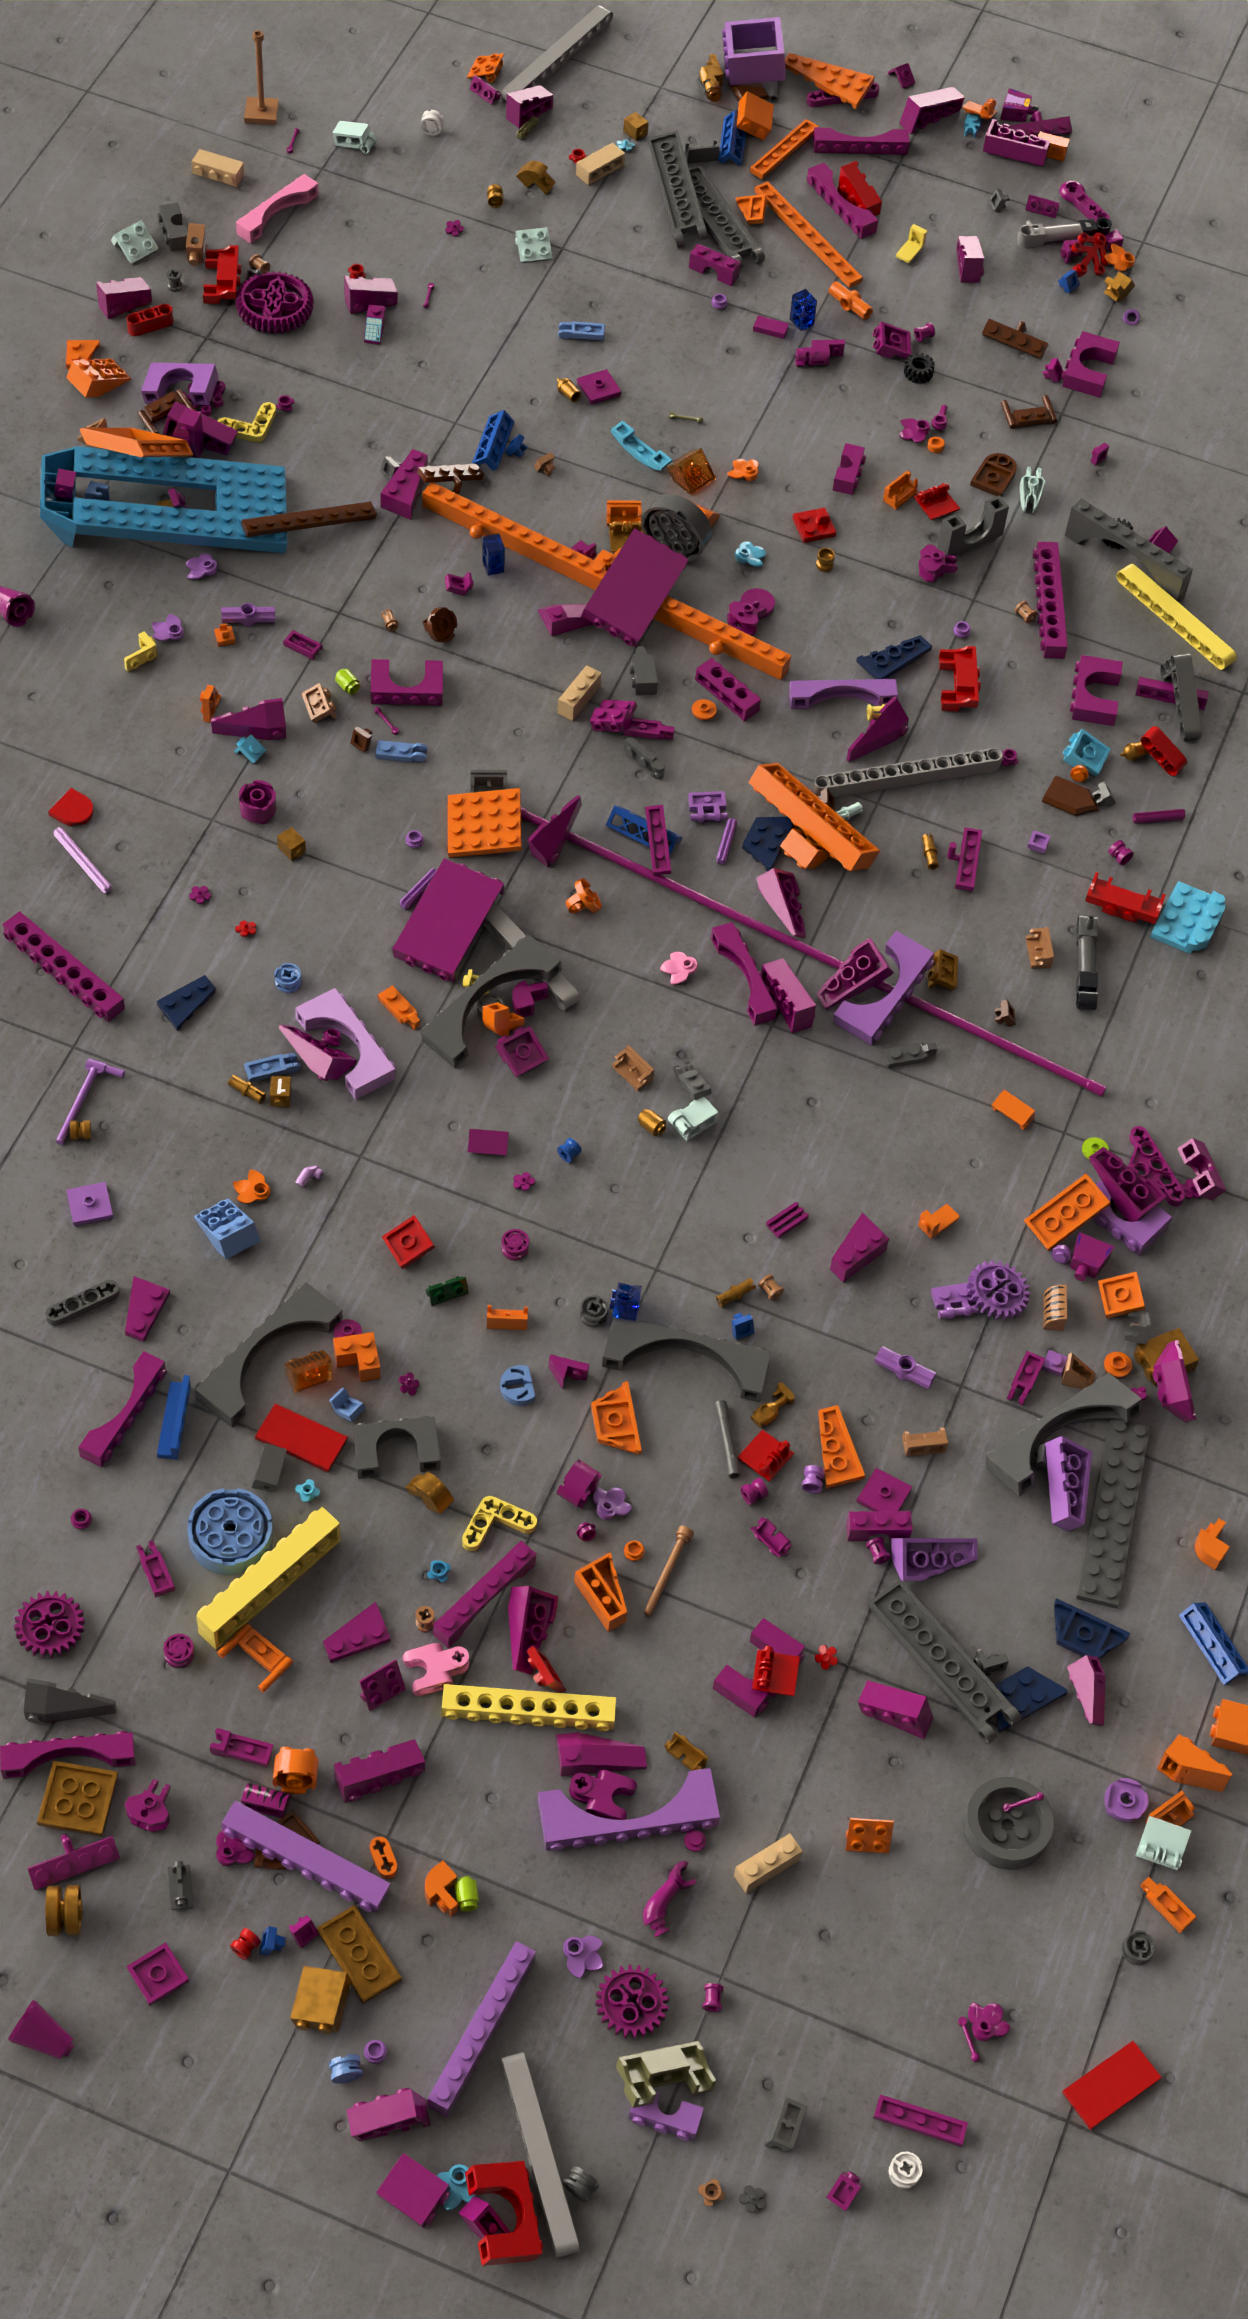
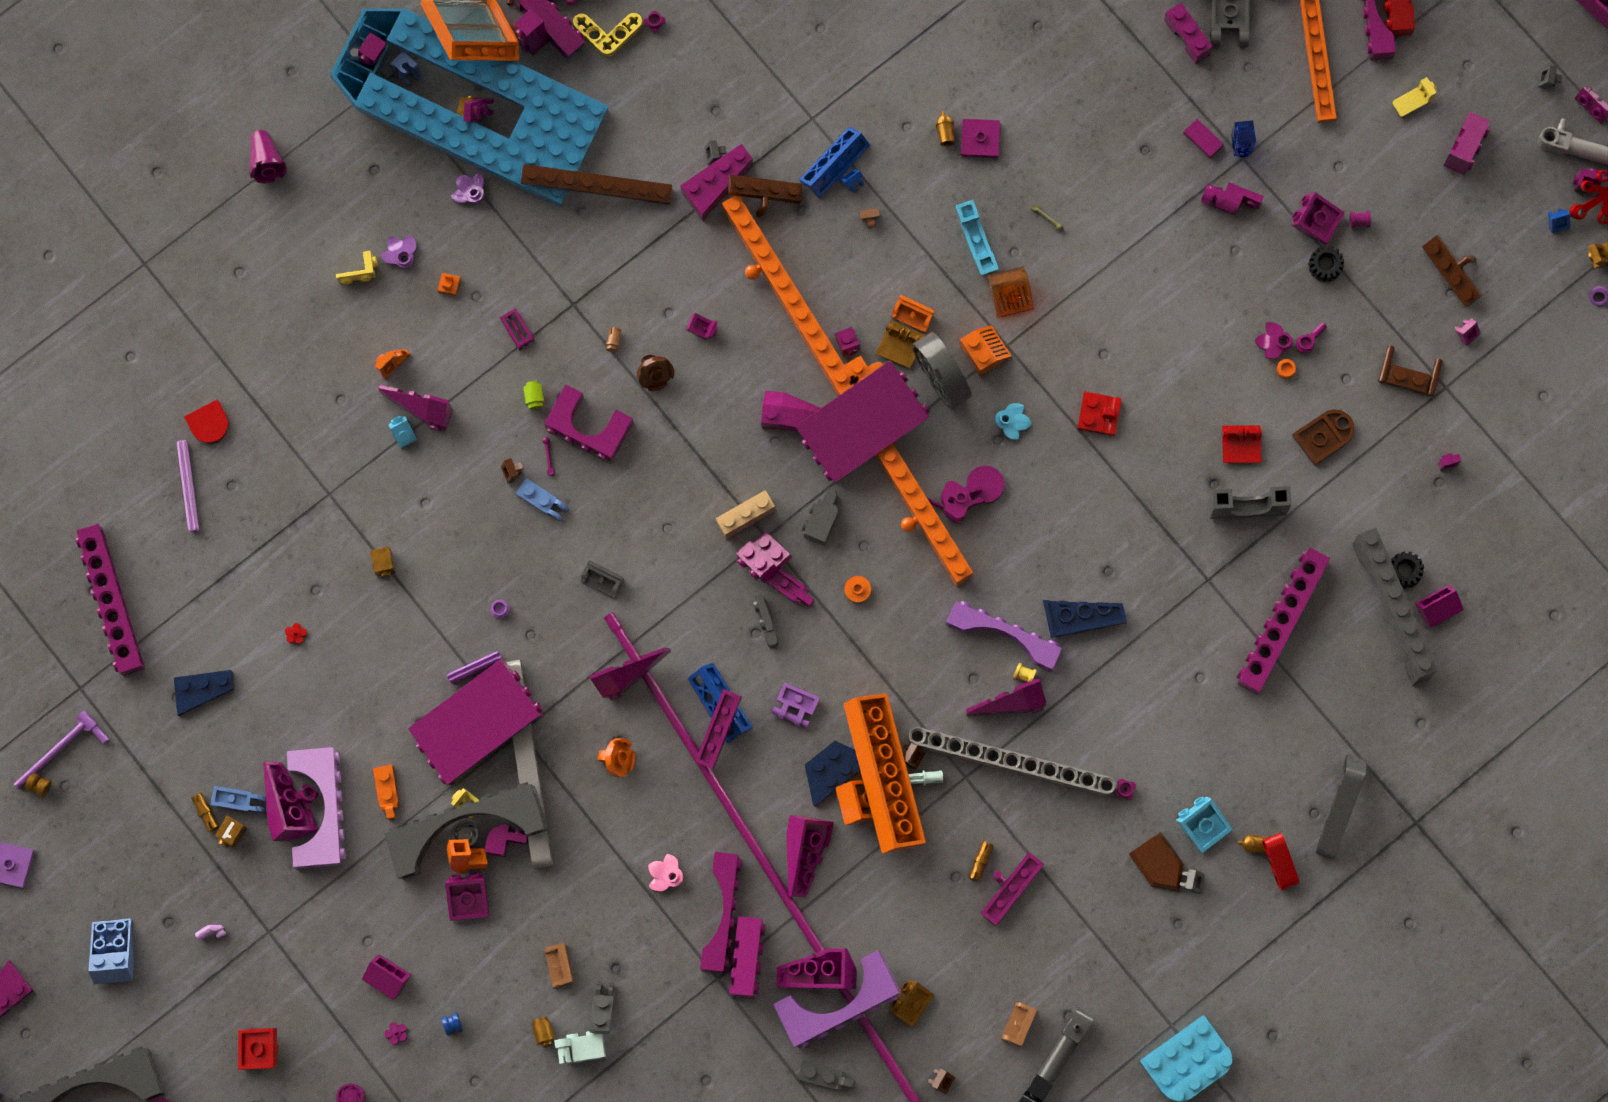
camera: 40 degrees right, 20 degrees up
(199, 894) = (274, 575): magenta plant -> none
(247, 614) = (491, 276): medium lavender piece -> none
(249, 1188) = (154, 917): orange plate -> none
(257, 802) = (374, 510): magenta brick -> none
(288, 977) = (302, 709): medium blue wheel -> none
(319, 703) = (494, 409): medium nougat bracket -> none
(484, 822) = (572, 623): orange plate -> none
(493, 554) = (751, 310): clear blue brick -> none
(581, 330) = (1003, 59): medium blue hinge -> none
(719, 301) = (1167, 82): medium lavender plate -> none
(726, 841) = (791, 753): medium lavender axle -> none
(728, 689) = (896, 607): magenta brick -> none
(744, 469) = (1068, 309): orange plate -> none
(825, 559) = (1083, 461): pearl gold wheel -> none
(847, 477) = (1163, 374): magenta arch -> none
(850, 300) = (1306, 142): orange piece -> none
(900, 490) = (1211, 413): orange hinge -> none
(935, 563) = (1191, 521): magenta hinge -> none
(962, 629) = (1171, 614): medium lavender plate -> none
(966, 675) = (1132, 684): red bracket -> none
(1031, 489) = (1348, 474): light aqua hinge -> none
(1032, 613) = (1248, 623): medium nougat bush -> none
(1038, 841) = (1093, 902): medium lavender plate -> none
(1079, 773) = (1183, 843): orange plate -> none
(1086, 706) = (1268, 727): magenta arch -> none
(1089, 347) = (1523, 317): magenta arch -> none
(1120, 852) = (1166, 955): magenta wheel -> none
(1123, 902) = (1130, 1016): red bracket -> none
(1157, 816) = (1233, 929): magenta axle -> none
(1165, 692) = (1322, 783): magenta fence -> none
(1176, 616) = (1401, 702): light yellow beam -> none

